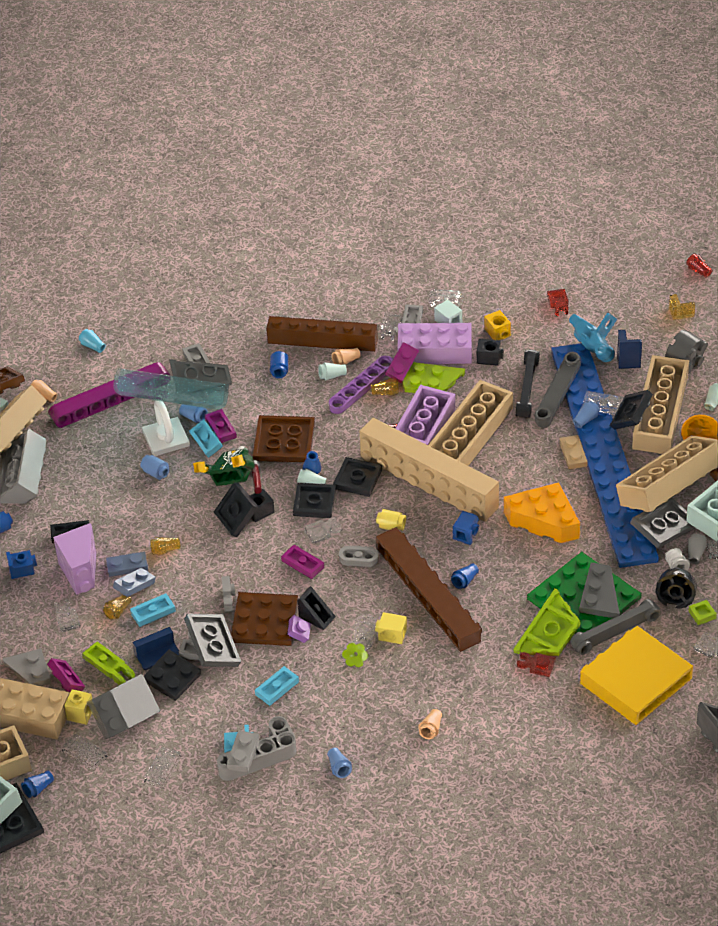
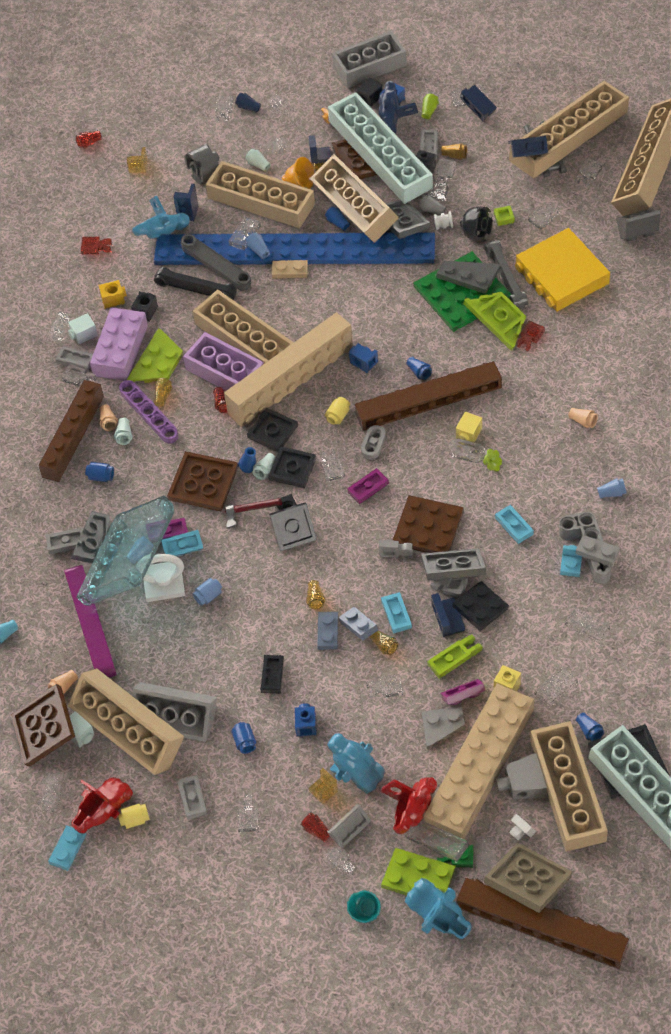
camera: 75 degrees left, 10 degrees up
(77, 557) = (323, 662): lavender slope -> none
(123, 706) = (522, 645): slope -> none
(229, 468) = (234, 523): dark green torso -> none
(299, 629) = (451, 497): medium lavender plate -> none
(313, 609) = (431, 484): black slope -> none
(402, 362) = (142, 368): magenta plate -> none
(543, 513) = (365, 297): light orange brick -> none
(631, 409) = (272, 208): black plate -> none

